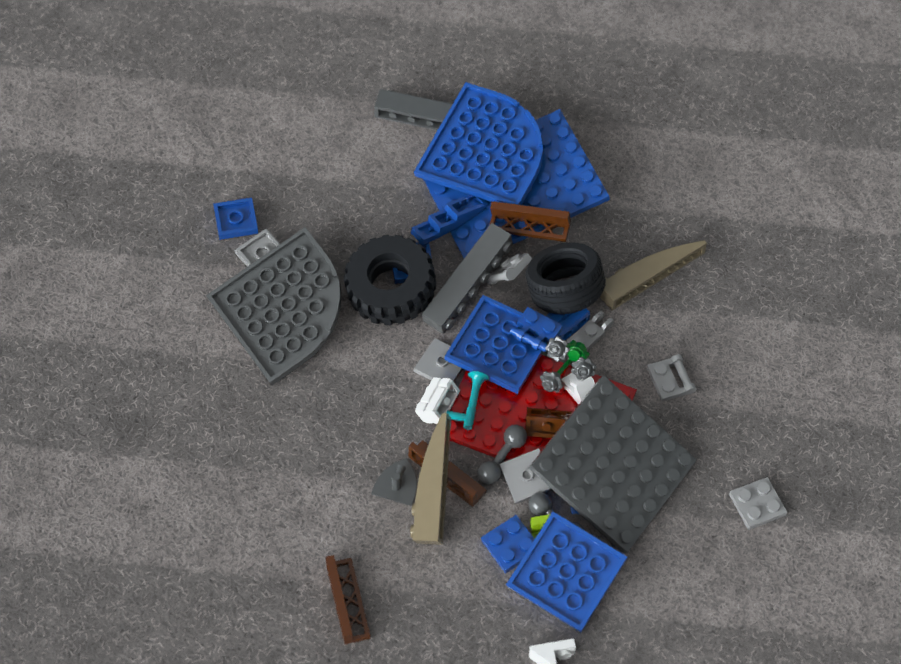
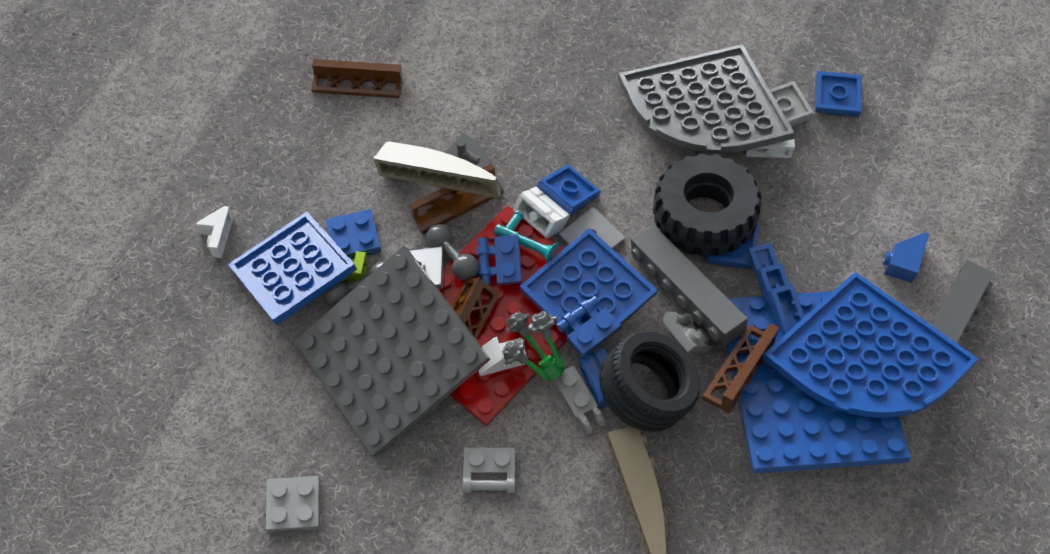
camera: 110 degrees right, 5 degrees up
(380, 146) = (906, 258): none -> blue slope
(405, 388) = (568, 189): none -> blue plate
(496, 407) = (507, 257): none -> blue plate

